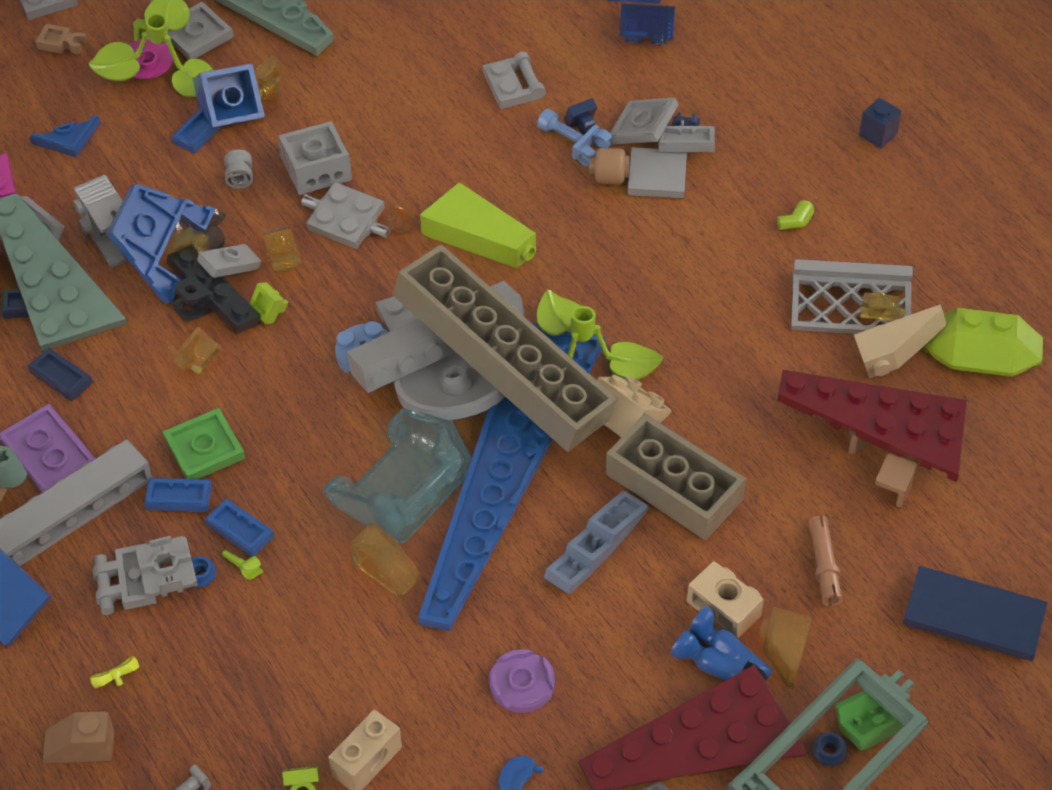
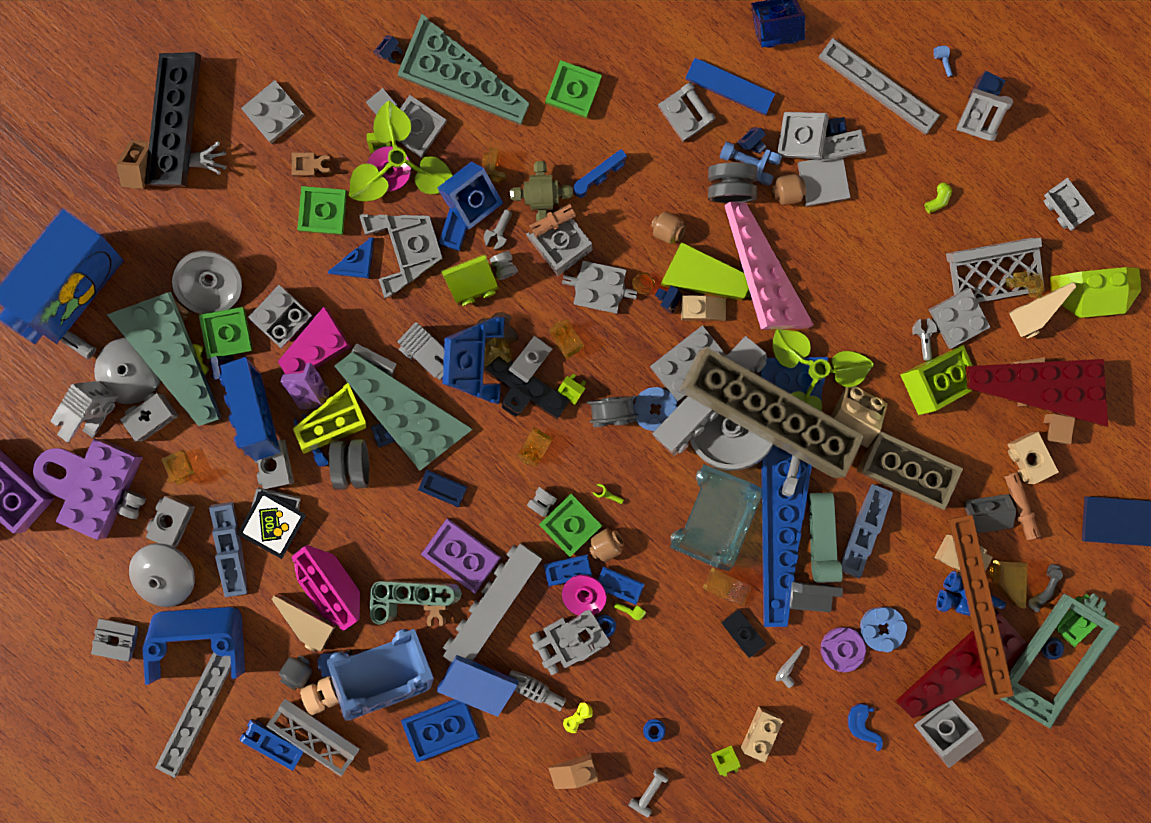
camera: 15 degrees left, 35 degrees up
(53, 81) = (322, 210): none -> bright green plate
(73, 625) = (536, 690): none -> light grey hinge
(141, 132) = (413, 245): none -> light grey wing
(178, 409) = (544, 497): none -> light grey wheel
(183, 511) = (579, 602): none -> dark pink dish
(190, 157) = (471, 281): none -> lime slope
(211, 709) = (657, 736): none -> blue plate
(241, 475) = (606, 545): none -> medium nougat head
(246, 143) = (498, 231): none -> light grey bar
(262, 424) = (607, 494): none -> lime hand
(307, 323) = (612, 411): none -> dark grey wheel
(311, 106) = (541, 191): none -> olive piece
(311, 123) = (552, 220): none -> nougat pin
(387, 109) = (598, 174): none -> blue plate
(387, 626) = (743, 633): none -> black plate
(389, 34) = (573, 89): none -> bright green plate
(425, 238) = (669, 299): none -> dark blue tile
(434, 682) = (785, 670): none -> light grey bar
(449, 170) = (668, 227): none -> medium nougat head
(469, 253) = (703, 308): none -> tan slope
(500, 595) = (813, 596): none -> dark grey panel
(509, 444) = (791, 481): none -> light grey bar
(530, 549) = (823, 538): none -> sand green beam
(540, 139) = (732, 182): none -> dark grey wheel
(550, 241) = (769, 286): none -> bright pink wing
(573, 69) = (729, 86): none -> blue tile
(592, 650) = (870, 631): none -> medium blue plate
(726, 648) = (980, 607): none -> dark orange plate
(741, 349) = (925, 336): none -> light grey bar
(742, 393) = (938, 380): none -> lime slope
(752, 103) = (879, 86): none -> light grey tile
(776, 563) = (991, 513): none -> dark grey panel
(790, 336) = (959, 318): none -> light grey plate
(818, 684) = (1038, 600): none -> dark grey piece
(835, 85) = (943, 52): none -> medium blue hand
(851, 489) = (1043, 464): none -> tan brick
(861, 135) = (977, 112): none -> light grey plate
(960, 250) = (1068, 204): none -> light grey bracket

